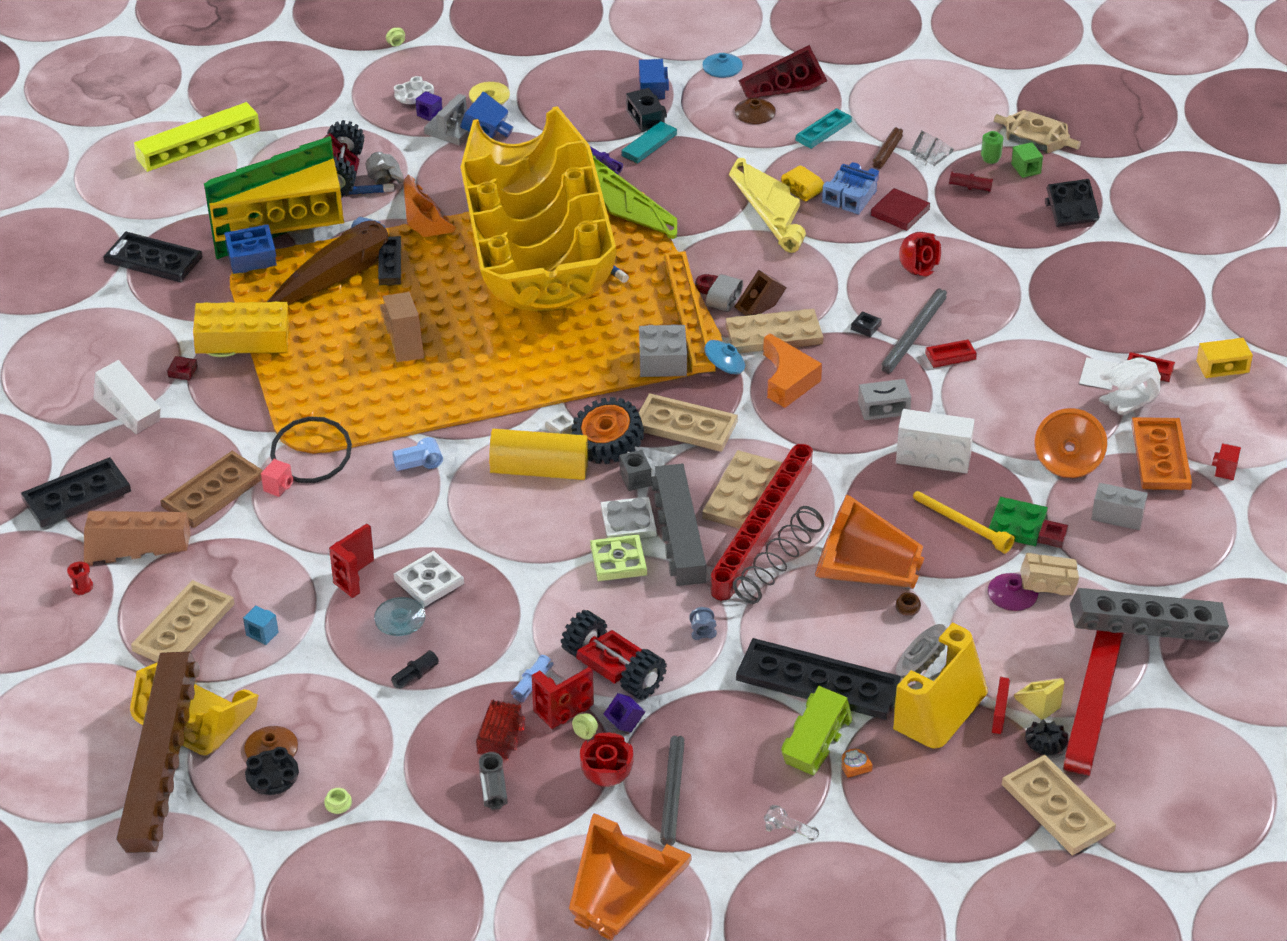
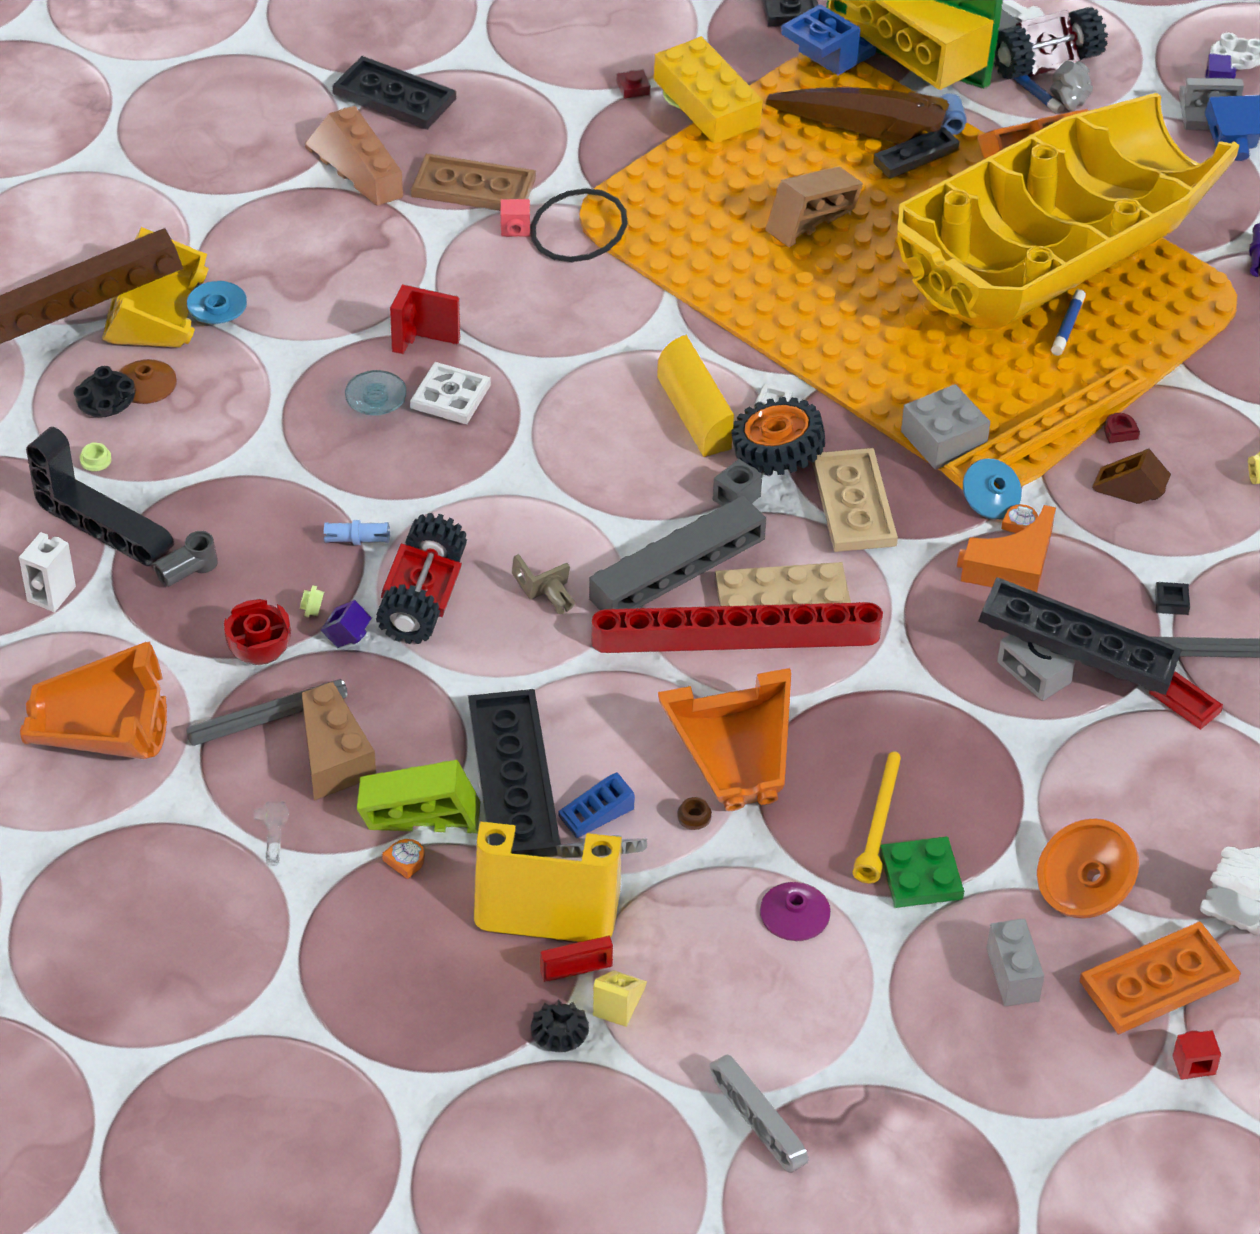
camera: 60 degrees right, 5 degrees up
(80, 577) = (276, 147): red bush -> none
(125, 397) = (543, 60): white wedge -> none
(183, 621) = (263, 244): tan plate -> none
(228, 671) = (216, 302): none -> dark azure dish
(260, 625) = (296, 298): dark azure plate -> none
(377, 828) = (87, 508): none -> black beam
(415, 669) = (311, 437): black axle -> none
(425, 453) = (634, 311): light blue piece -> none
(455, 855) = (47, 572): none -> white brick
(500, 728) = (263, 536): clear red brick -> none
(563, 701) = (328, 564): red bracket -> none
(618, 557) = (589, 529): yellowish green piece -> none
(628, 518) = (658, 512): light grey piece -> none
(631, 204) = (1202, 289): lime wing -> none
(657, 596) = (547, 583): none -> dark tan bracket
(702, 623) = (532, 638): sand blue brick -> none
(724, 292) = (1108, 444): light grey beam -> none
(730, 758) = (335, 742): none -> medium nougat wedge
(756, 358) = (1018, 518): none -> tile
(793, 327) = (1088, 519): tan plate -> none
(819, 517) = (607, 654): dark grey piece -> none
(873, 633) = (619, 801): none -> blue slope
(888, 366) = (1080, 636): none -> black plate
(935, 441) = (982, 731): white brick -> none
(1049, 574) = (832, 930): tan brick -> none
(1053, 533) = (918, 912): dark red plate -> none
(1058, 805) = (449, 1073): tan plate -> none
(1092, 702) = (674, 1045): red beam -> none
(1134, 669) = (759, 1113): none -> light grey beam
(1148, 615) = (769, 969): dark grey brick -> none

